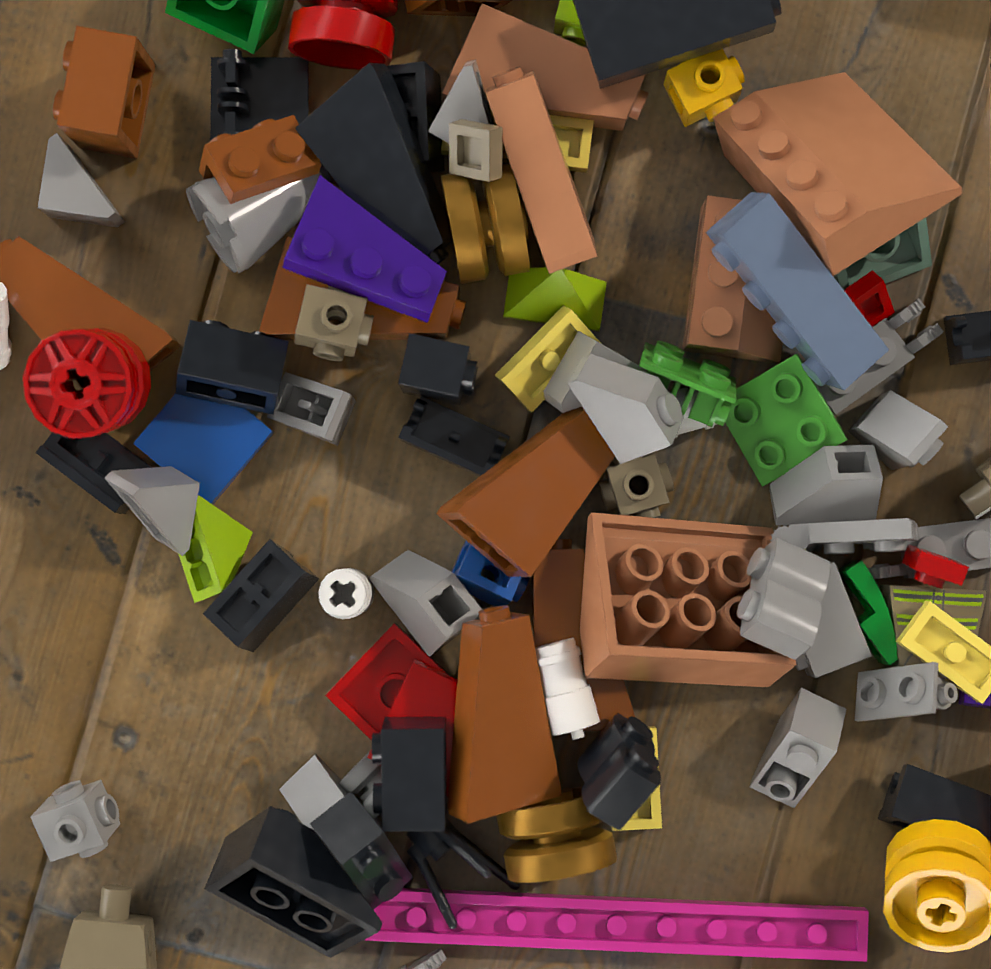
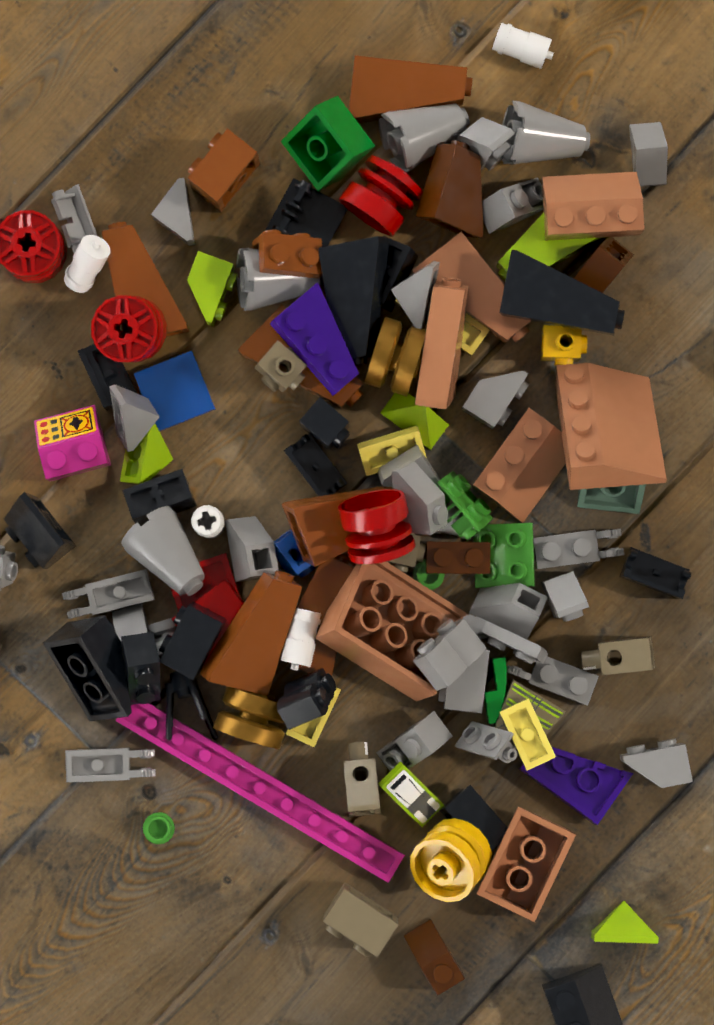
camera: 30 degrees right, 0 degrees up
(98, 587) = (71, 443): none -> dark pink slope
(114, 732) = (38, 531): none -> black slope
(170, 259) = (209, 283): none -> lime slope
(231, 366) = (212, 361): black brick -> none
(267, 764) = (112, 594): none -> light grey hinge
(308, 667) = (165, 551): none -> light grey cone
(313, 408) = (244, 407): light grey slope -> none
(475, 150) = (410, 315): dark tan plate -> none
(590, 473) = (376, 526): none -> red wheel
(647, 210) = (493, 395): none -> light grey slope
(690, 500) = (430, 581): none -> bright green plate
(720, 457) = (457, 557): none -> reddish brown plate
(769, 861) = (361, 795): none -> dark tan torso
(796, 291) = (547, 488): sand blue brick -> none
(831, 821) = (411, 794): none -> slope
(871, 298) = (586, 515): red plate -> none
(934, 568) = (542, 682): red plate -> none

